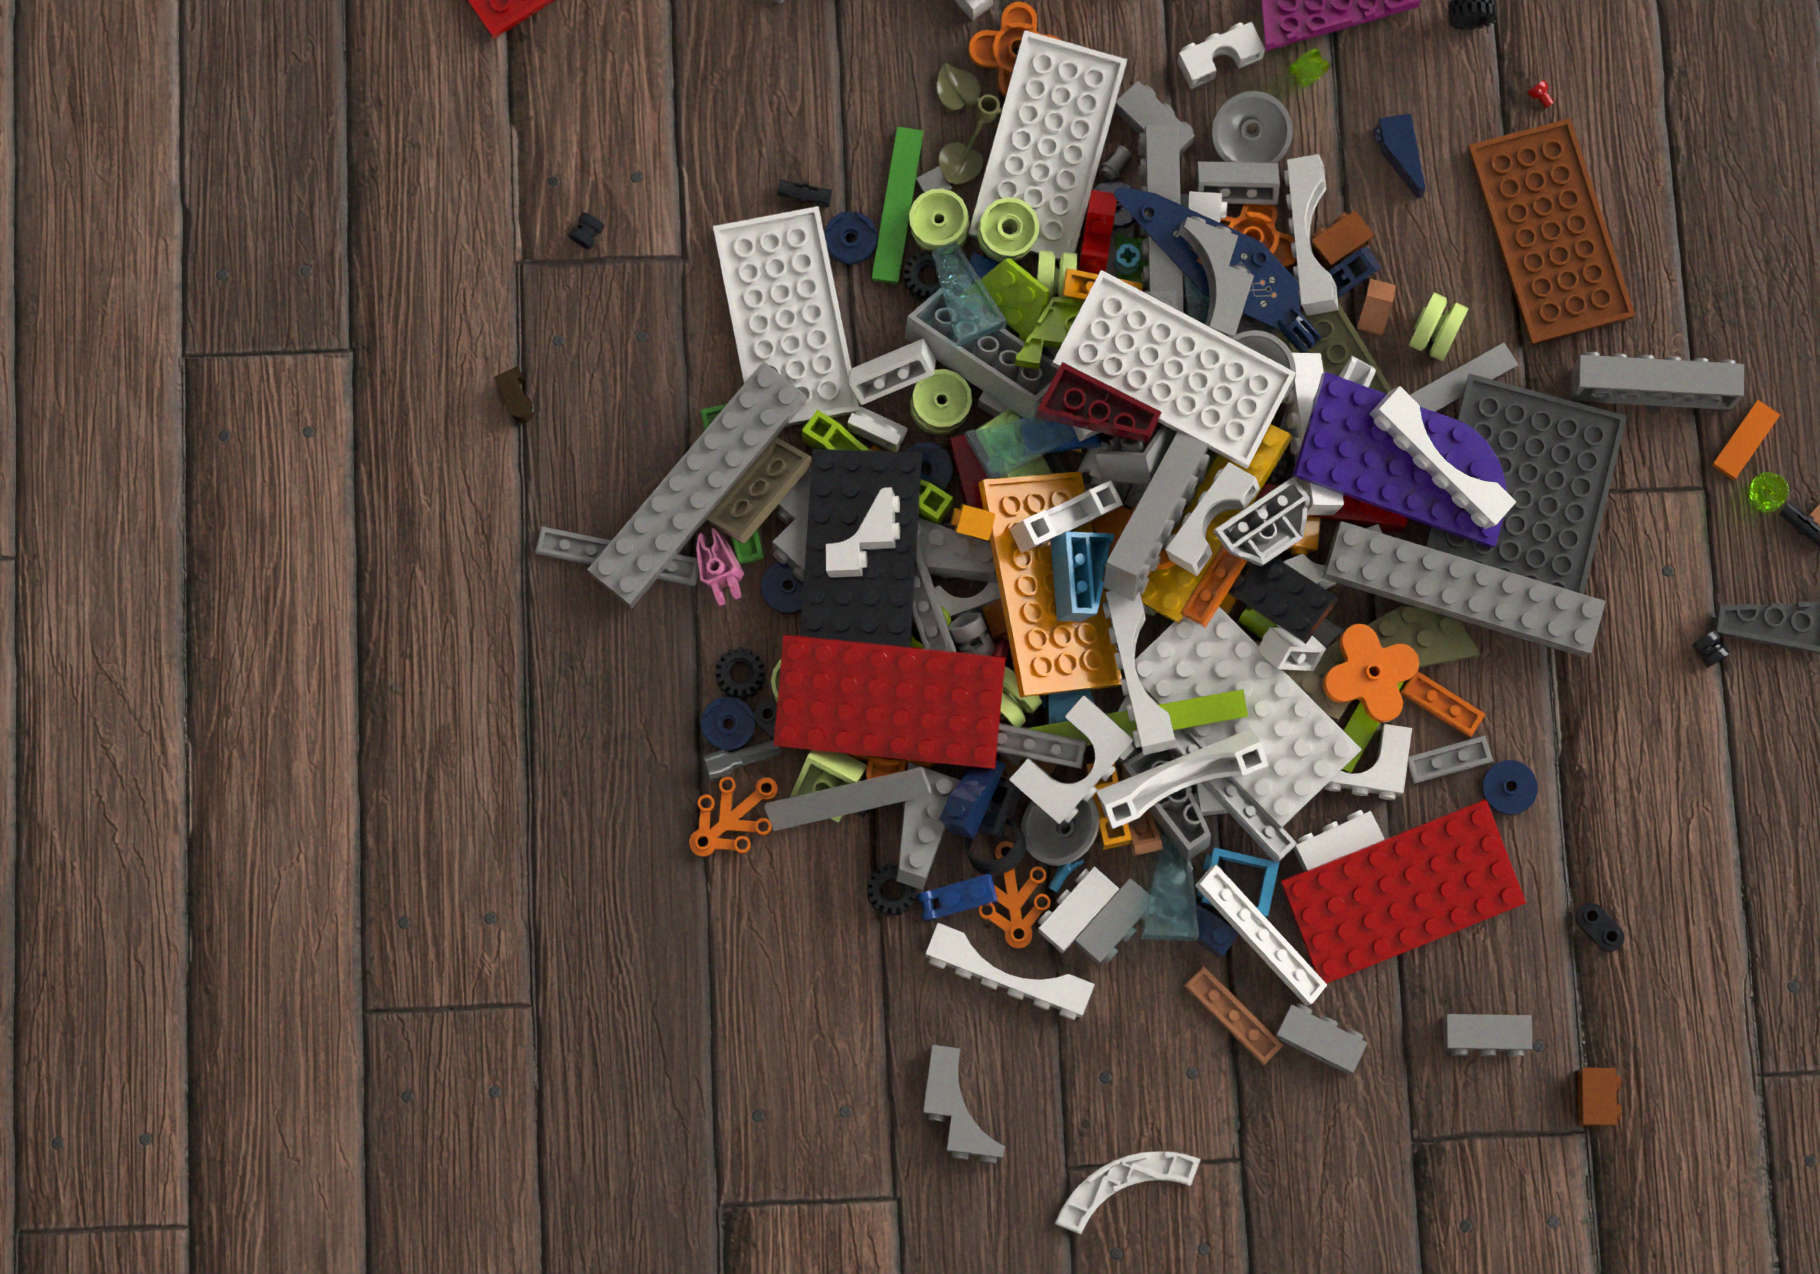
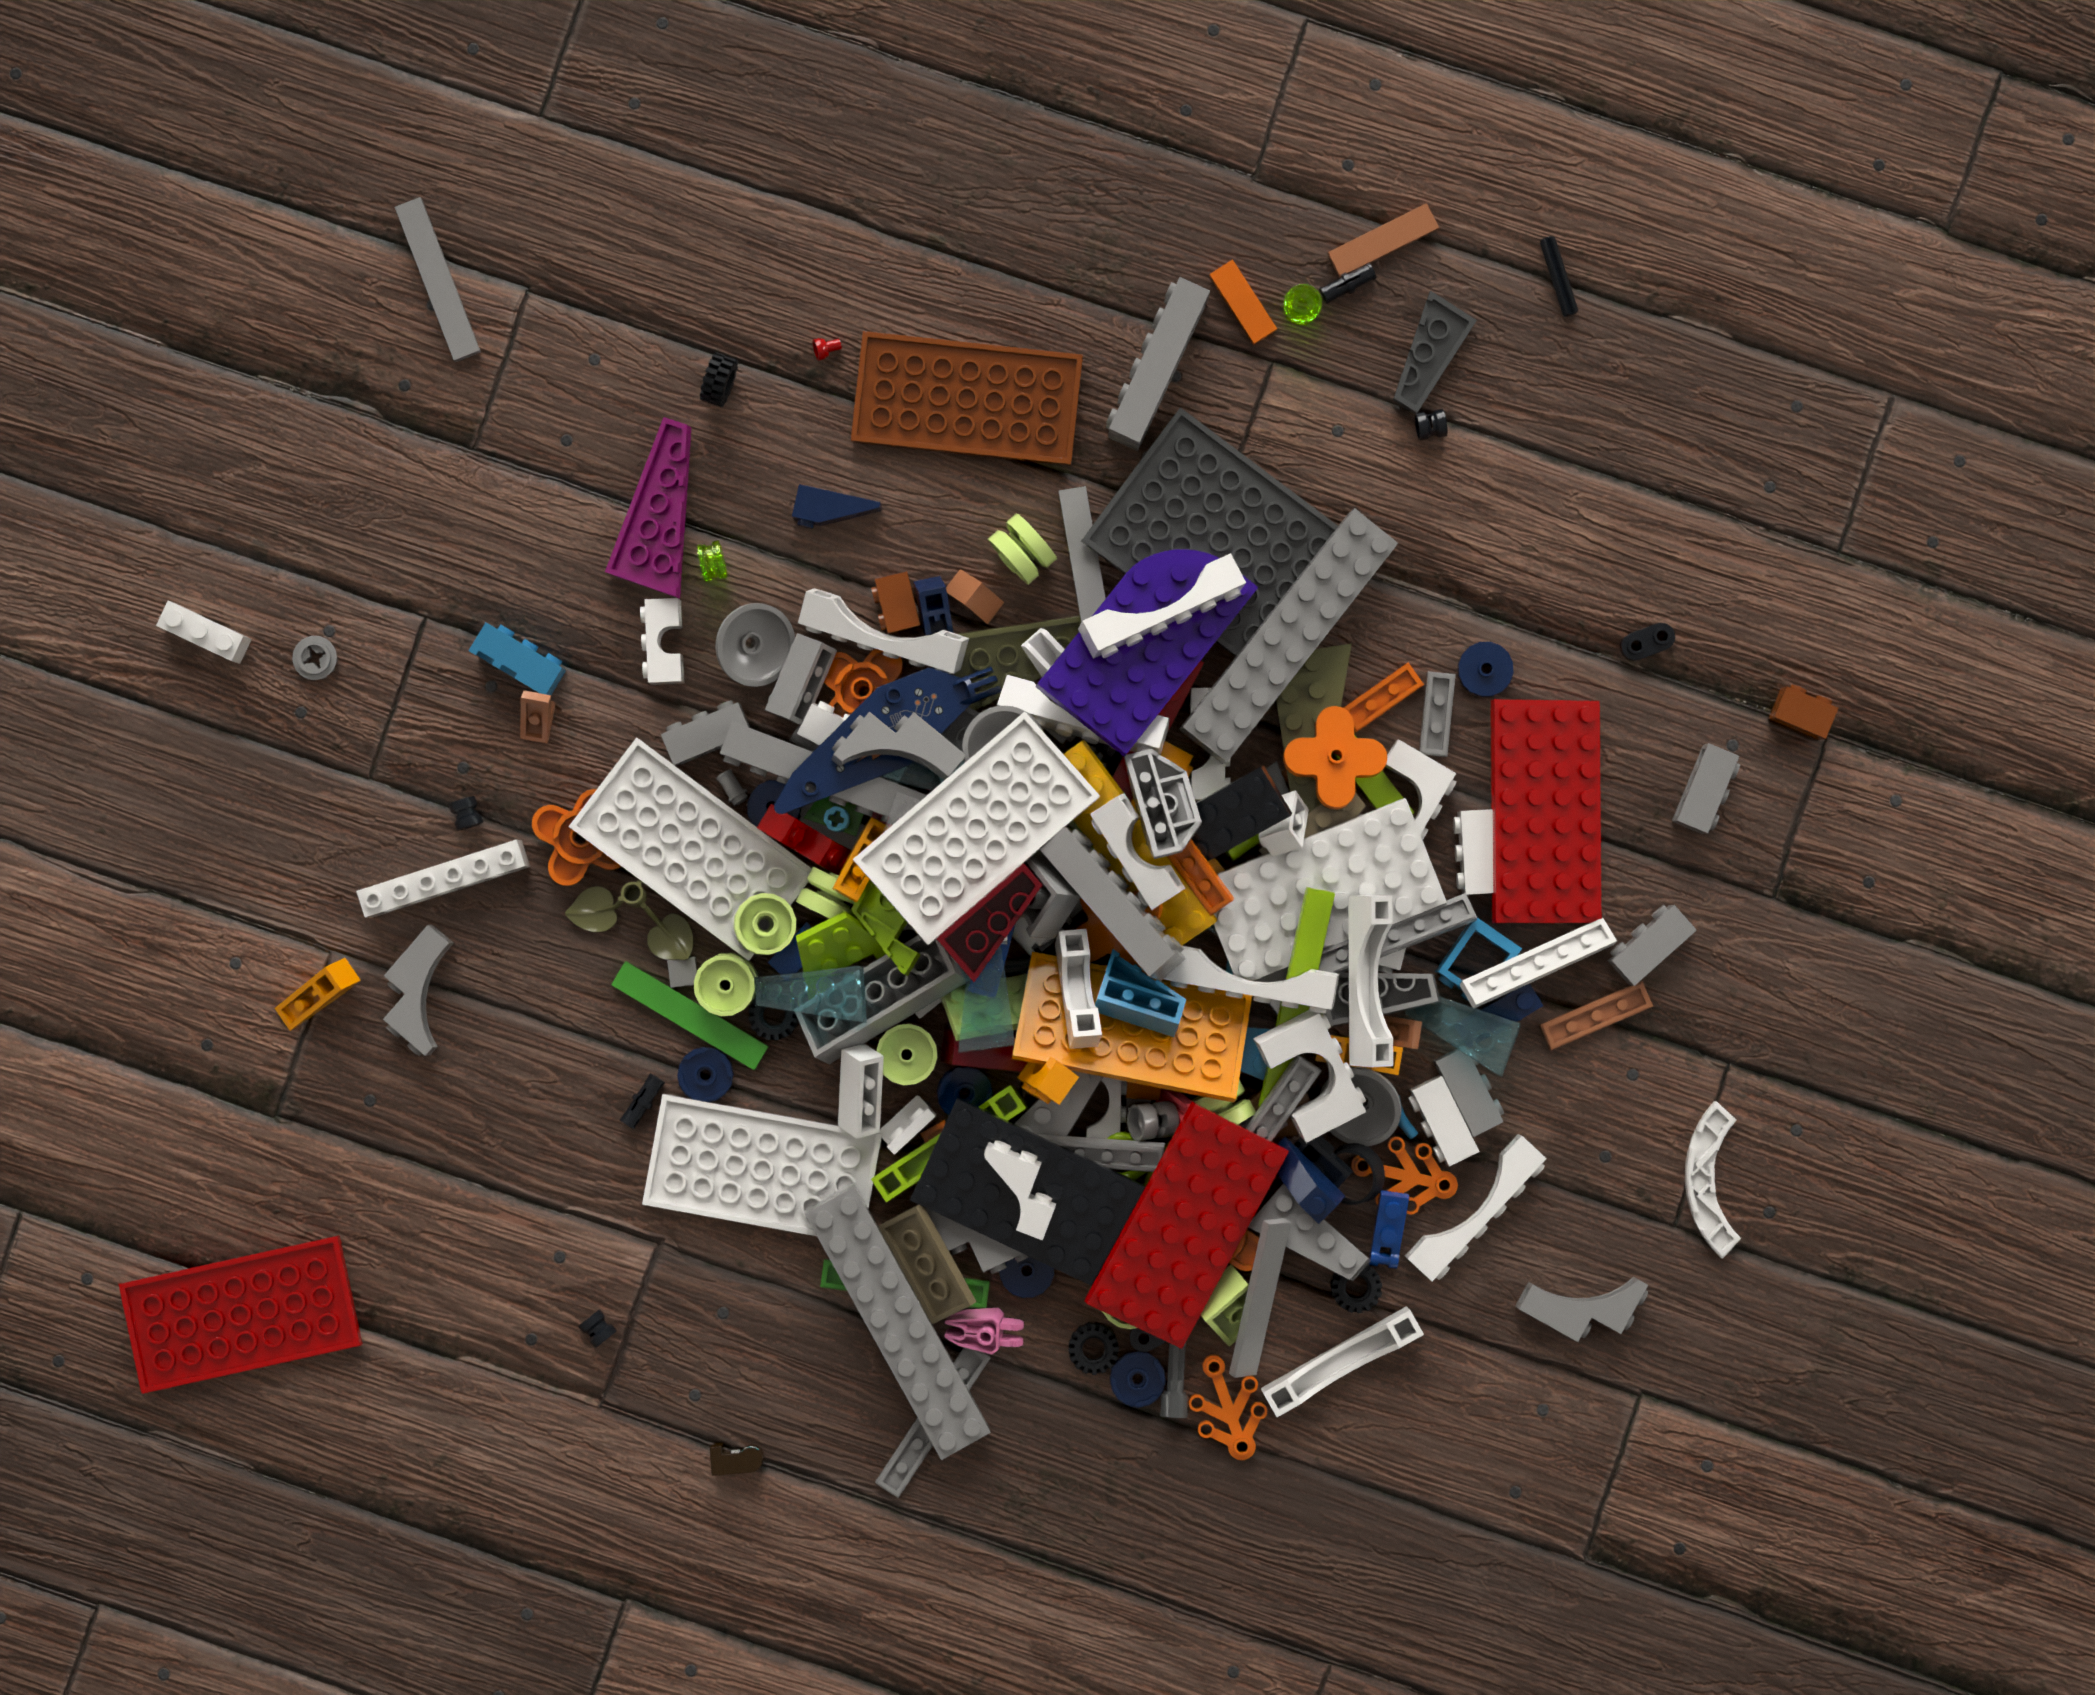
camera: 65 degrees left, 10 degrees up
(817, 901) = (1338, 1361): none -> white arch

